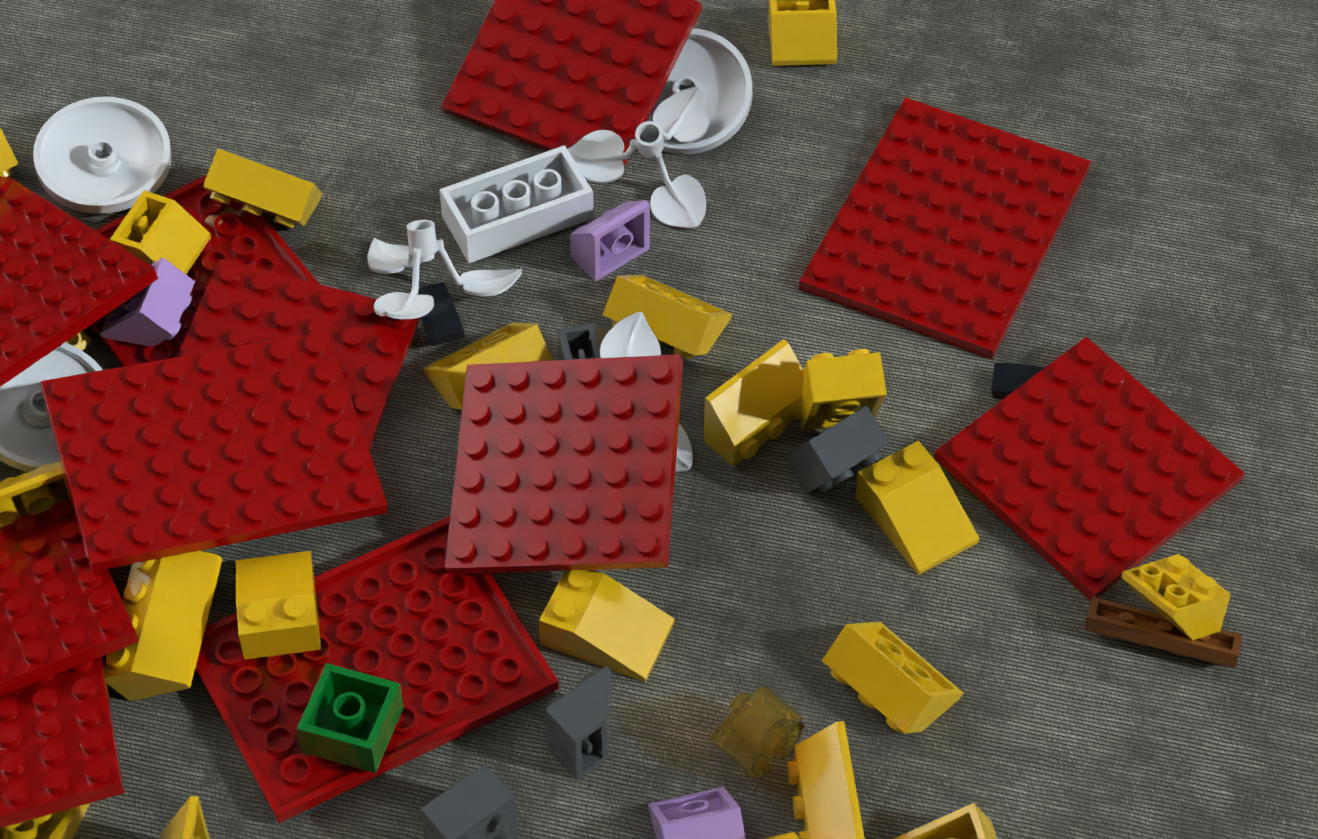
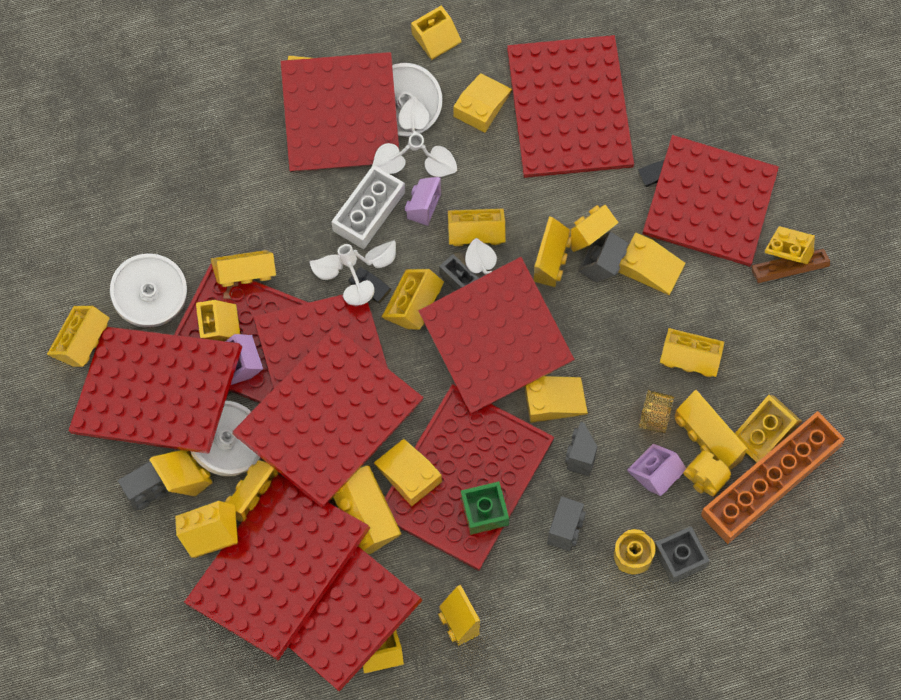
camera: 30 degrees left, 15 degrees up
(804, 152) = (481, 102): none -> yellow slope

